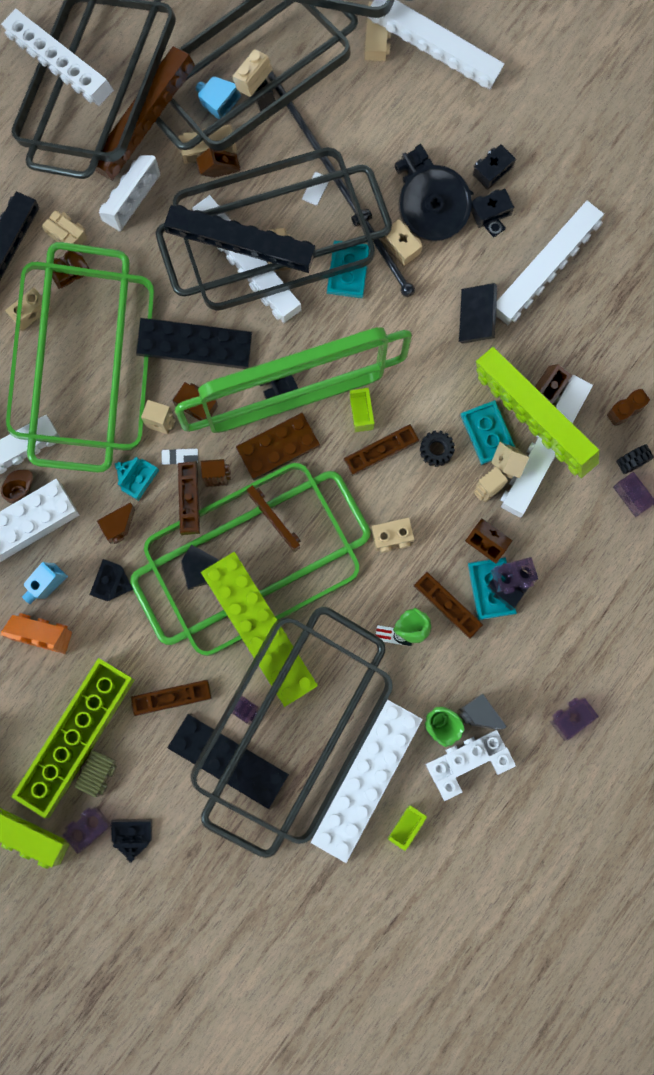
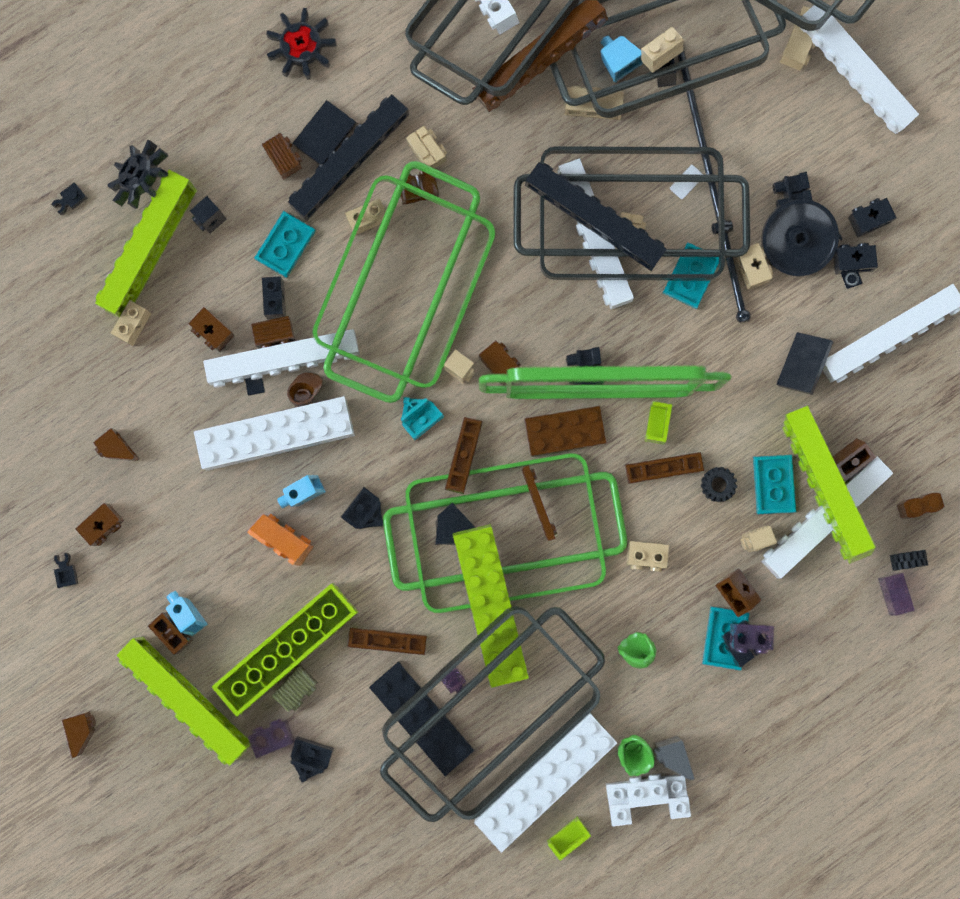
camera: 25 degrees right, 5 degrees up
(117, 523) = (387, 457): reddish brown slope -> none
(130, 192) = (502, 129): white slope -> none
(179, 456) = (467, 409): white sticker -> none
(194, 343) = (517, 303): black plate -> none
(215, 472) = (497, 439): reddish brown brick -> none
(217, 163) = (597, 127): reddish brown slope -> none
(388, 635) = (610, 649): sticker -> none
(448, 605) = (678, 641): reddish brown plate -> none
(509, 460) = (785, 522): tan brick -> none
(584, 716) = (771, 792): clear purple brick -> none

